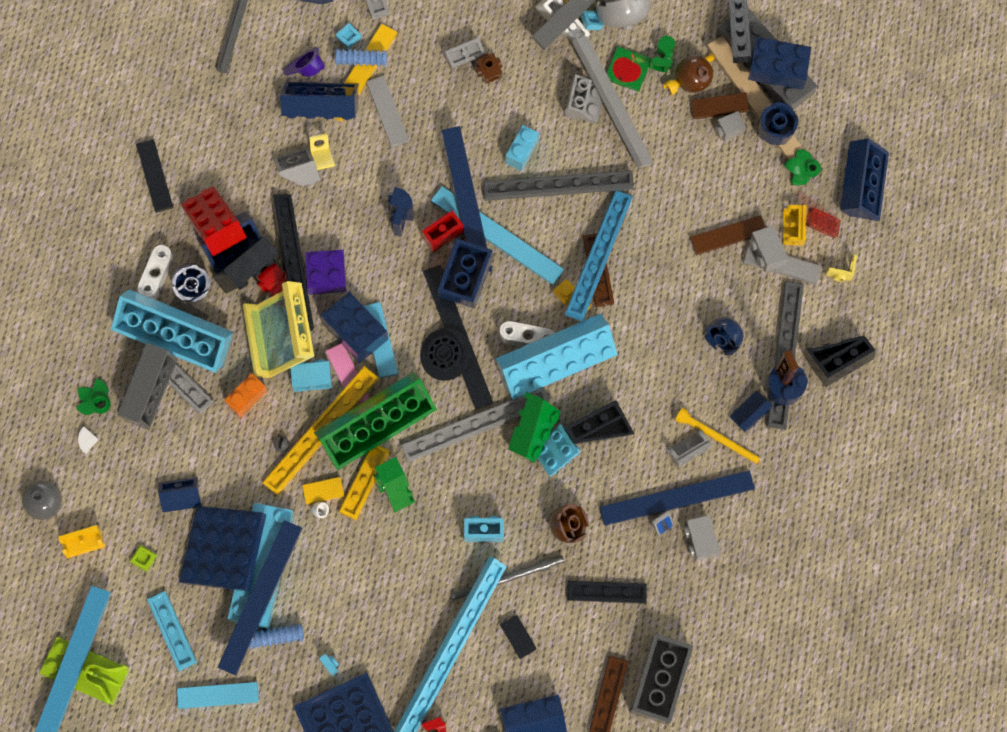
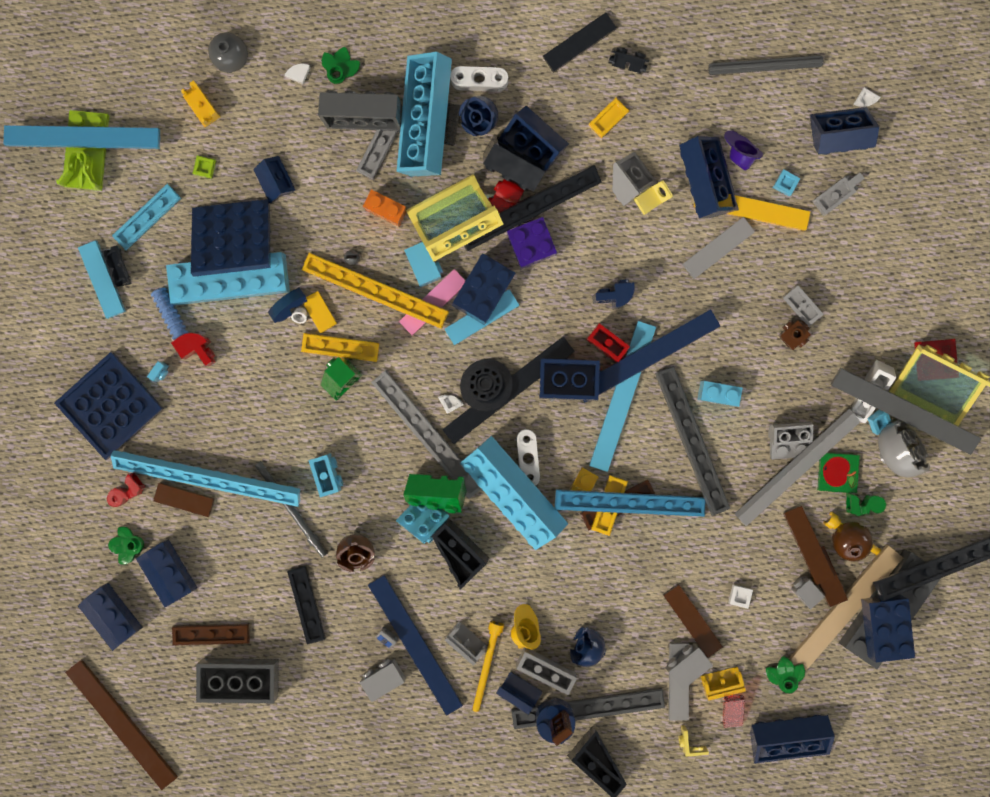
camera: 80 degrees right, 15 degrees up
(191, 131) = (636, 61): none -> black hinge
(202, 673) = (116, 267): none -> black hinge
(213, 220) = (544, 115): red brick -> none
(233, 171) = (608, 118): none -> yellow tile
(260, 598) = (191, 288): dark blue tile -> none
(305, 517) = (281, 309): none -> dark blue slope
(312, 618) = (193, 343): none -> red brick
(360, 57) = (765, 202): medium blue piece -> none
(375, 421) = (396, 339): green brick -> none
(452, 394) = (450, 402): none -> white tile
(464, 681) = (183, 499): none -> reddish brown tile
(518, 637) = (239, 536): black tile -> none
(607, 284) = (604, 521): none -> yellow tile
(686, 112) = (808, 545): none -> reddish brown tile
(692, 388) = (525, 628): none -> yellow piece
(717, 186) = (740, 596): none -> white plate
(736, 379) = (546, 670): none -> light grey brick
(768, 128) = (831, 647): dark blue brick -> none

